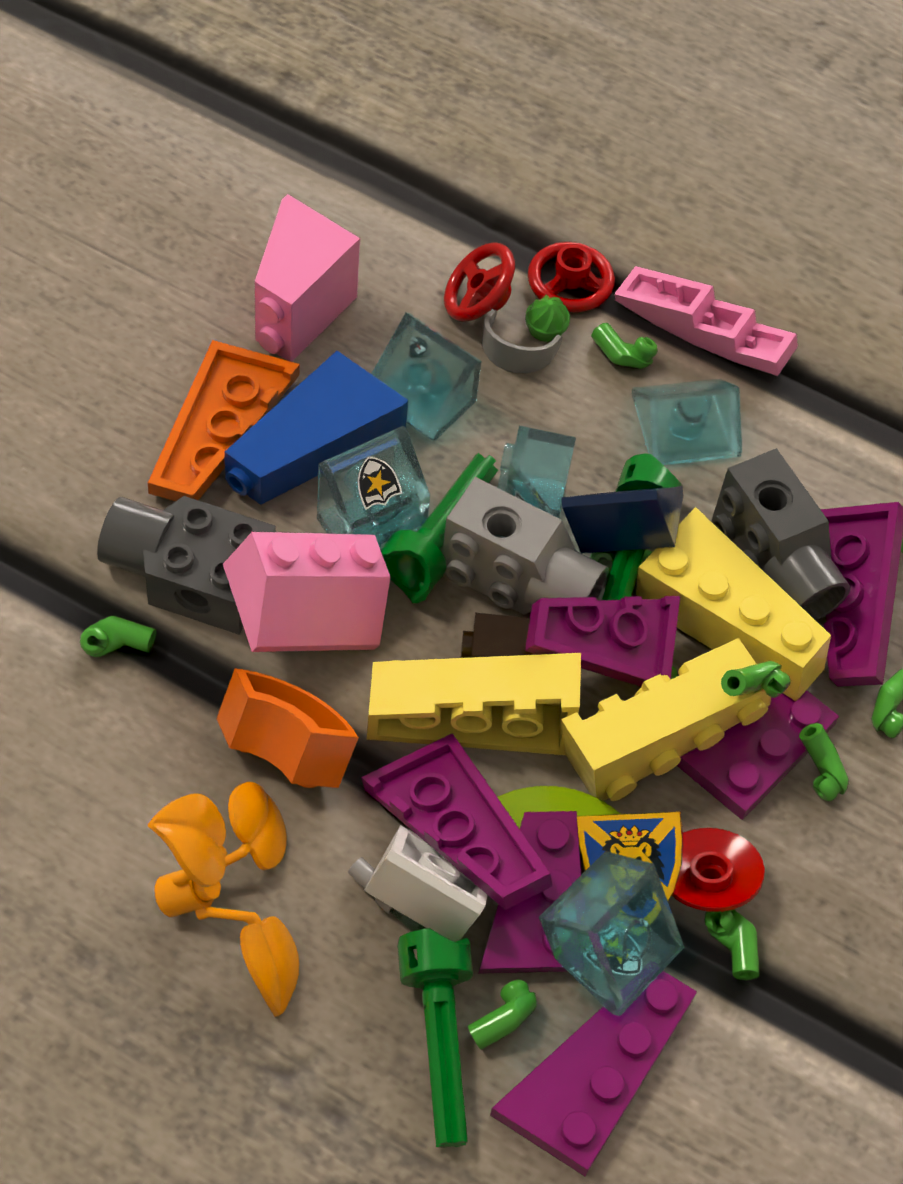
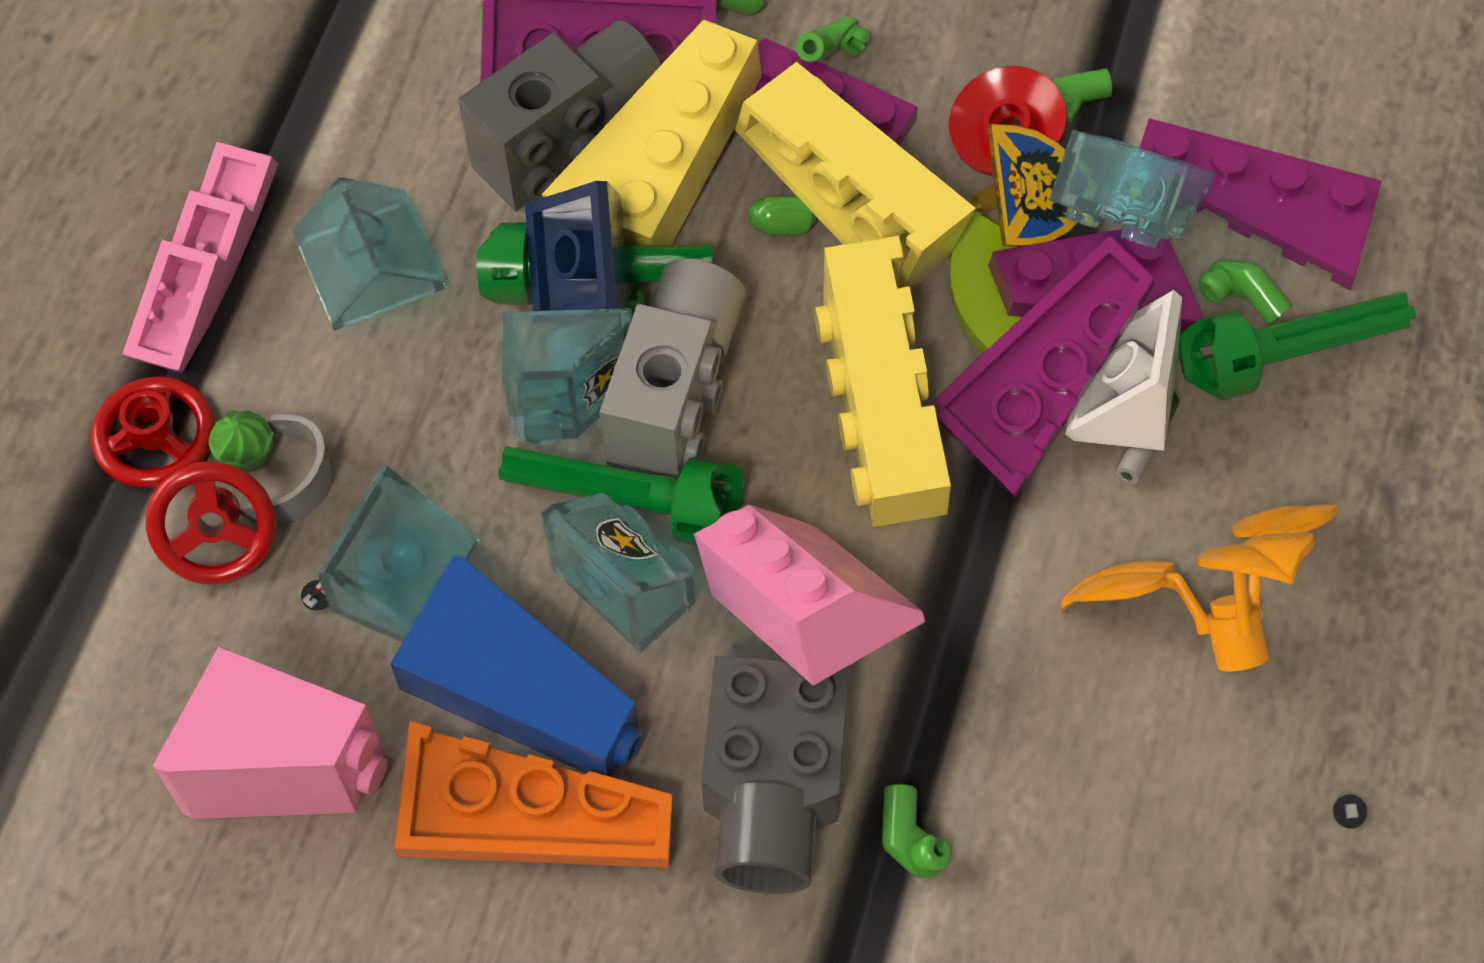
camera: 95 degrees left, 5 degrees up
(26, 939) = (1349, 811): none -> black piece
(286, 729) = (993, 578): orange brick -> none
(495, 636) = (791, 382): dark brown brick -> none
(616, 638) = (765, 243): magenta wing -> none
(620, 353) = (277, 342): bright green arm -> none
(754, 678) = (808, 71): bright green arm -> none

